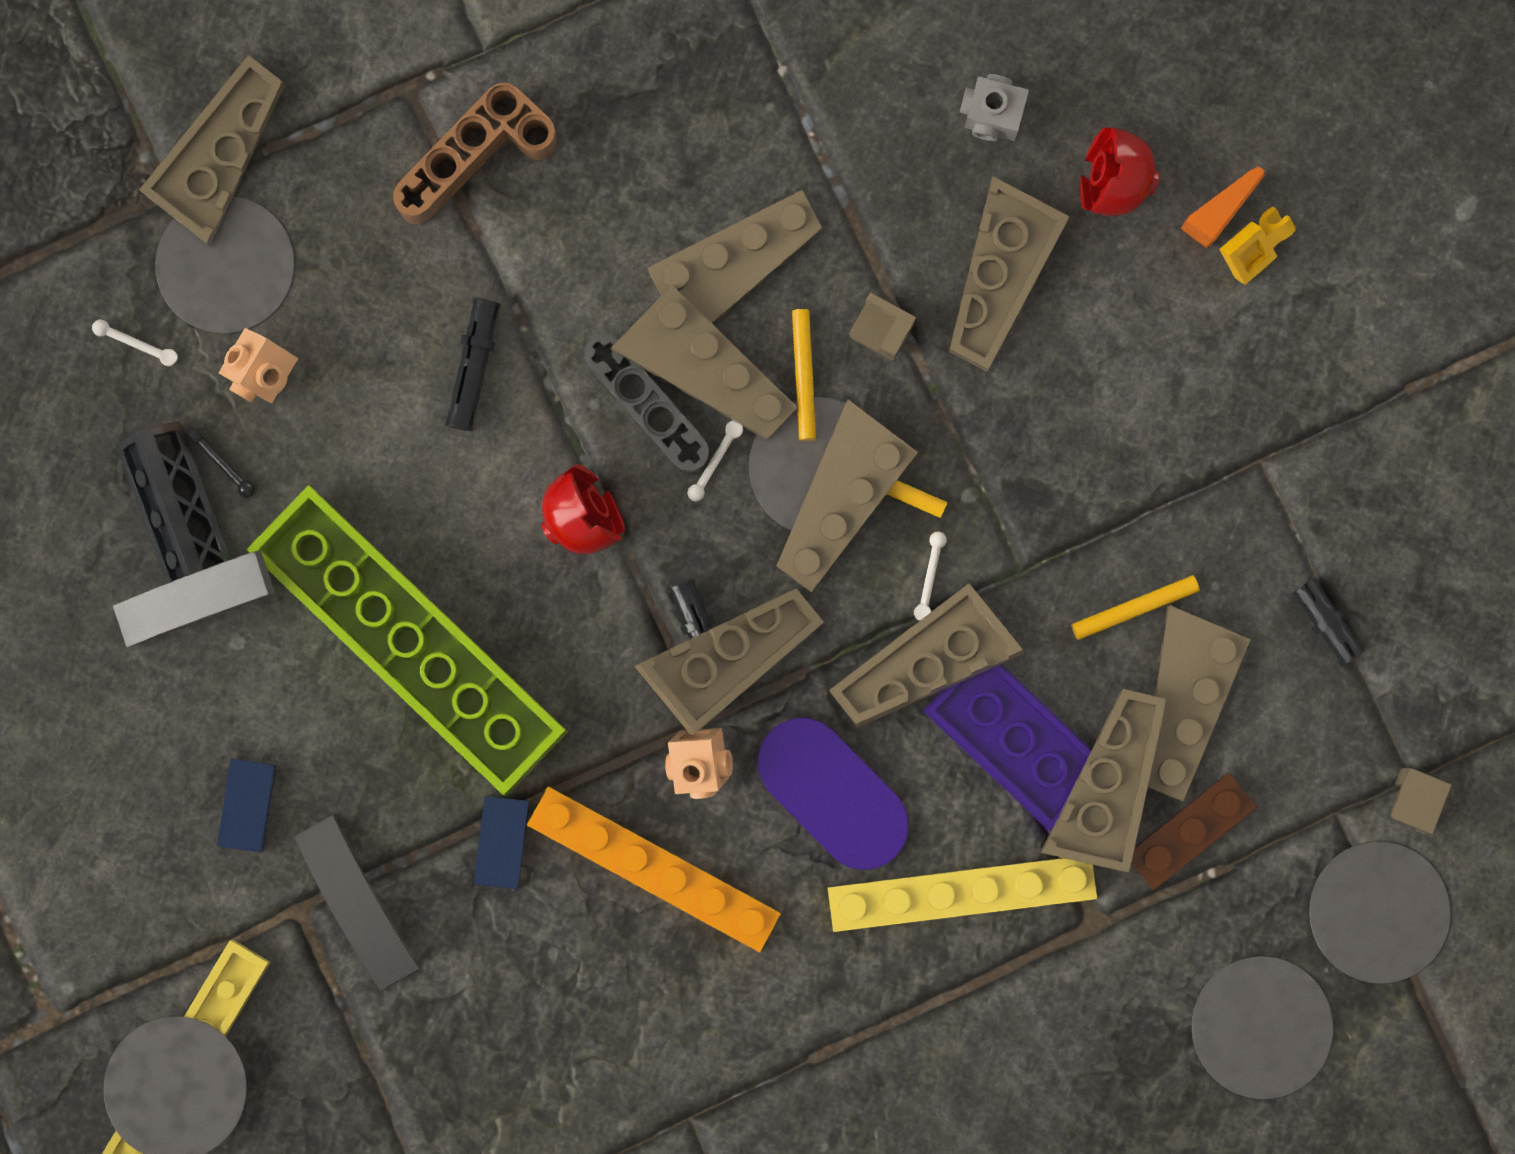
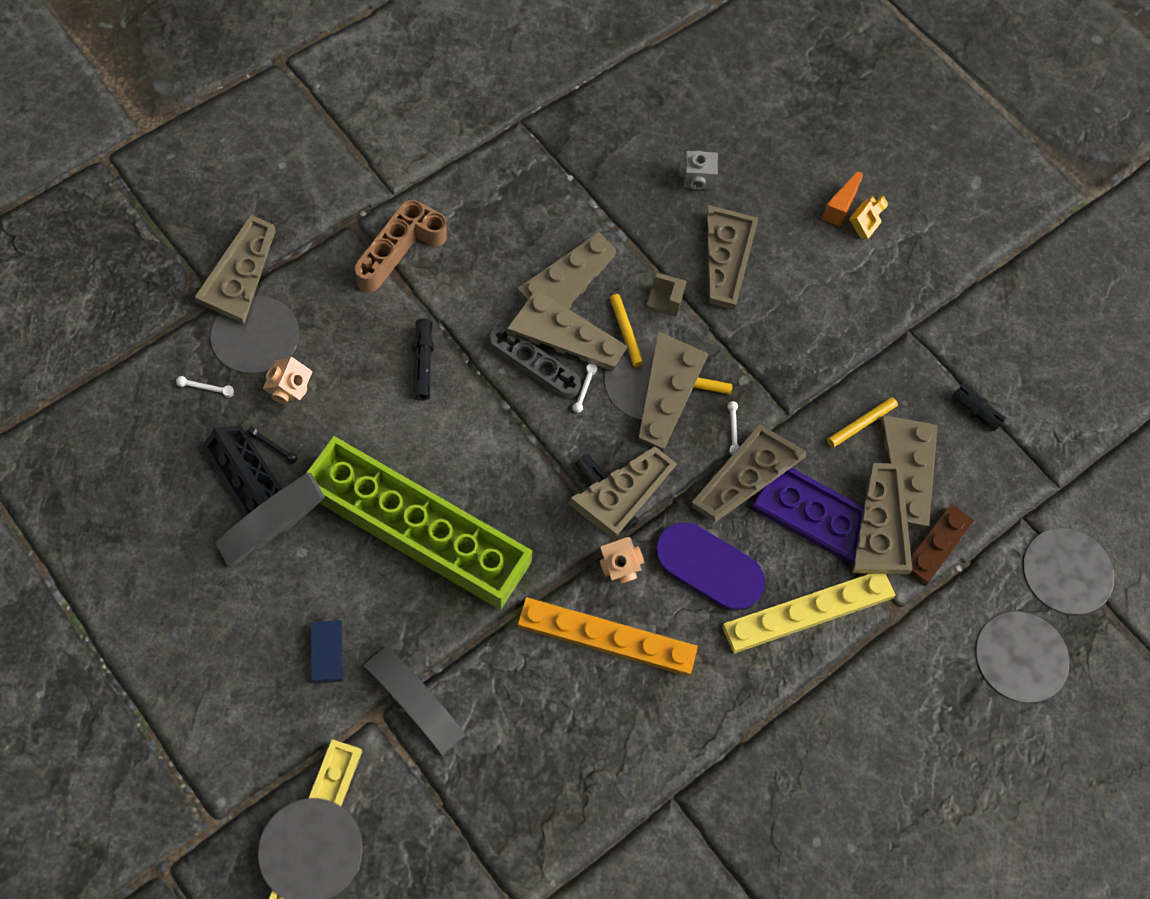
camera: 20 degrees left, 20 degrees down
(501, 842) = (503, 640): dark blue tile -> none
(579, 515) = (508, 428): red cylinder -> none
(1119, 175) = (779, 189): red cylinder -> none
(1419, 800) = (1071, 493): dark tan panel -> none

